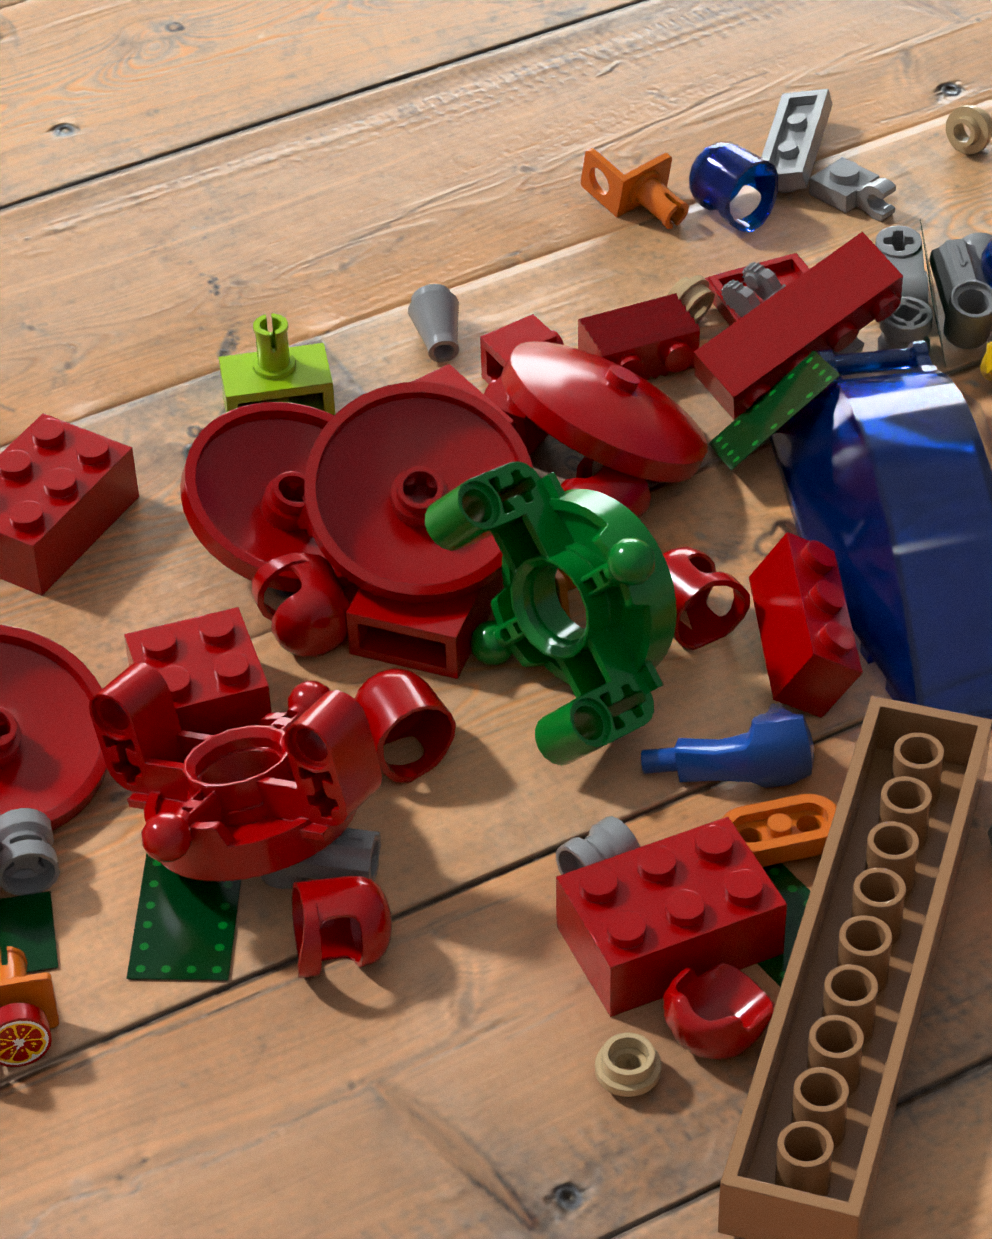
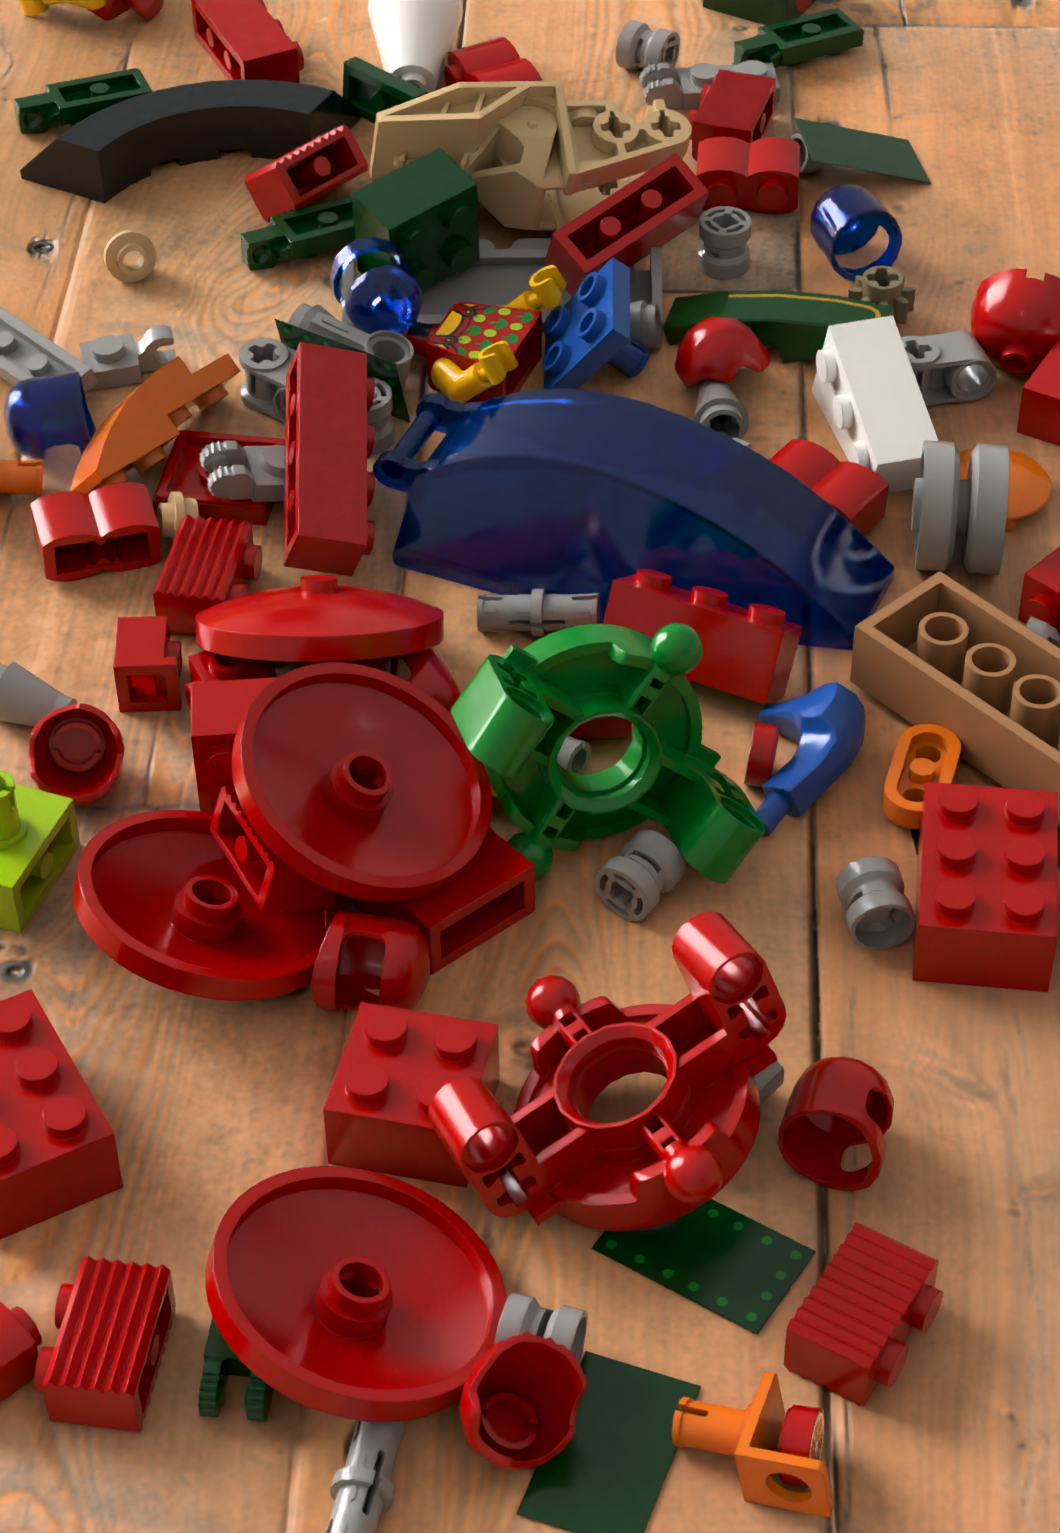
camera: 60 degrees left, 0 degrees up
(162, 1018) = (861, 1315): none -> red brick
(386, 360) = (76, 753): none -> red hair
(401, 707) = (595, 947): red helmet -> none
(504, 708) = (636, 879): none -> light grey wheel
(633, 262) = (96, 531): none -> red brick
(714, 718) = (761, 754): none -> red tile
(754, 225) = (149, 421): none -> orange slope
(762, 521) = (536, 611): none -> light grey pin
(773, 409) = (415, 524): dark green sticker -> none

